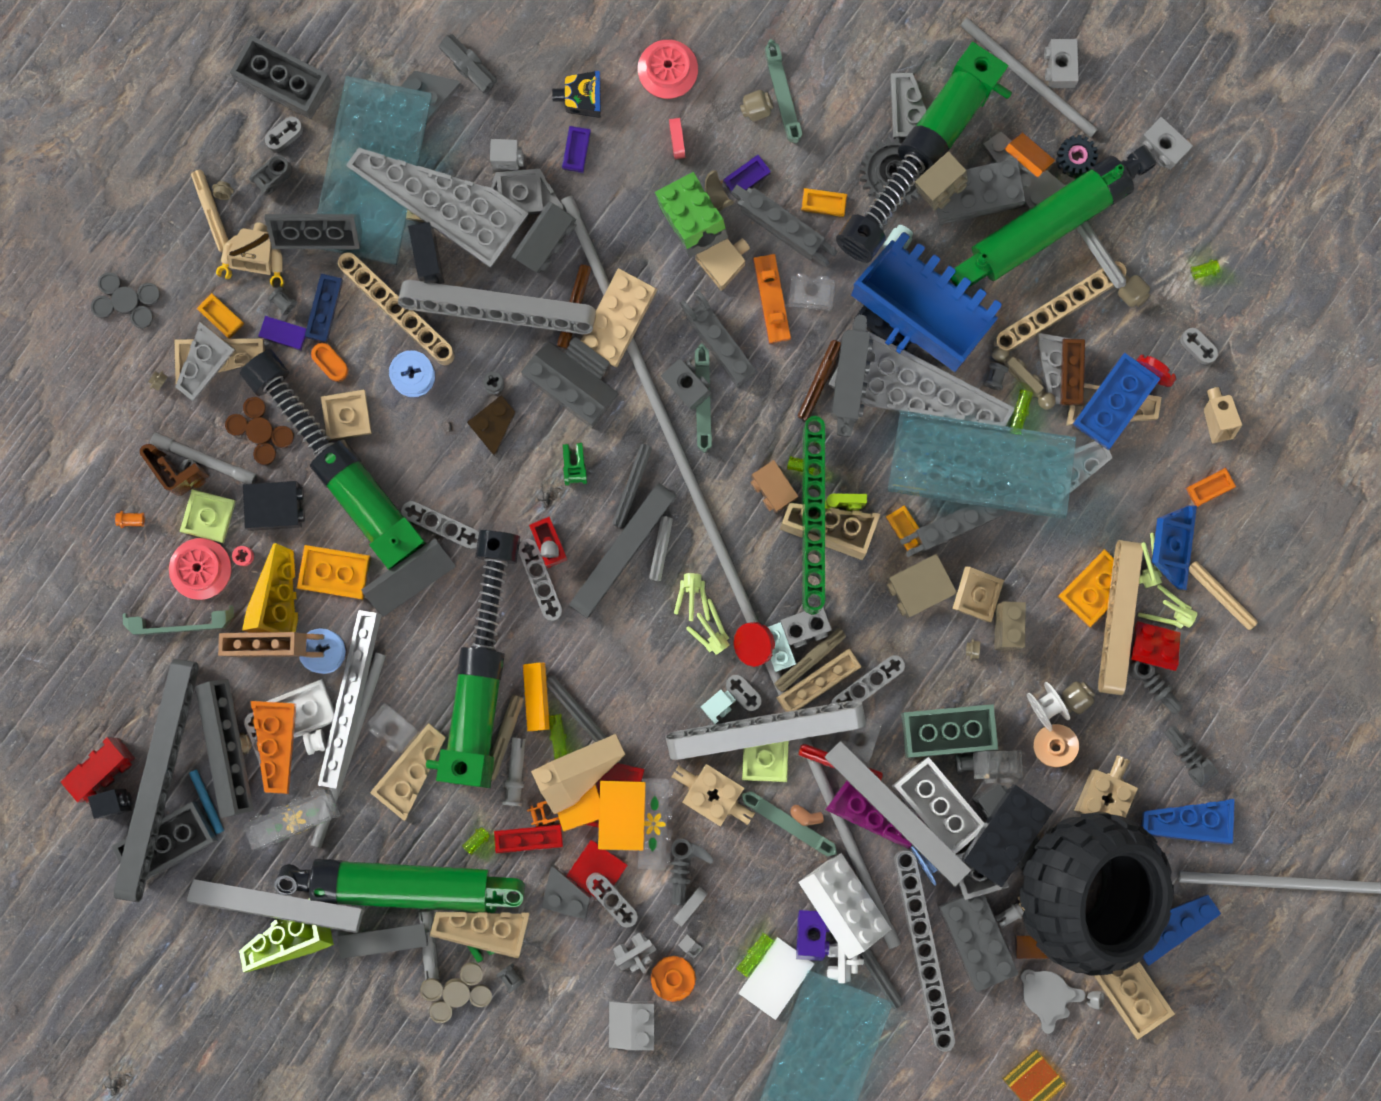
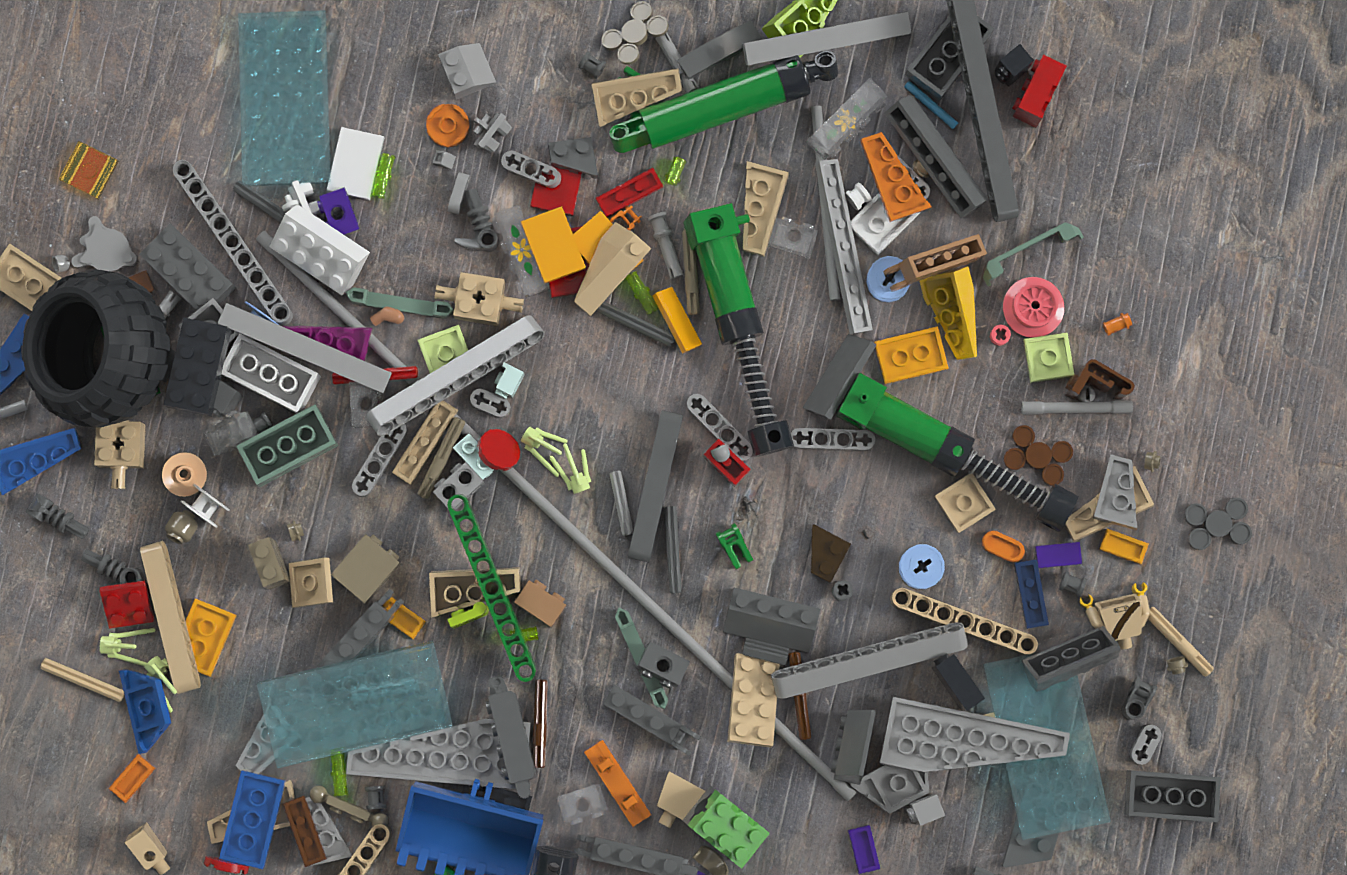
camera: 155 degrees right, 0 degrees up
(273, 505) = (993, 391): black brick -> none

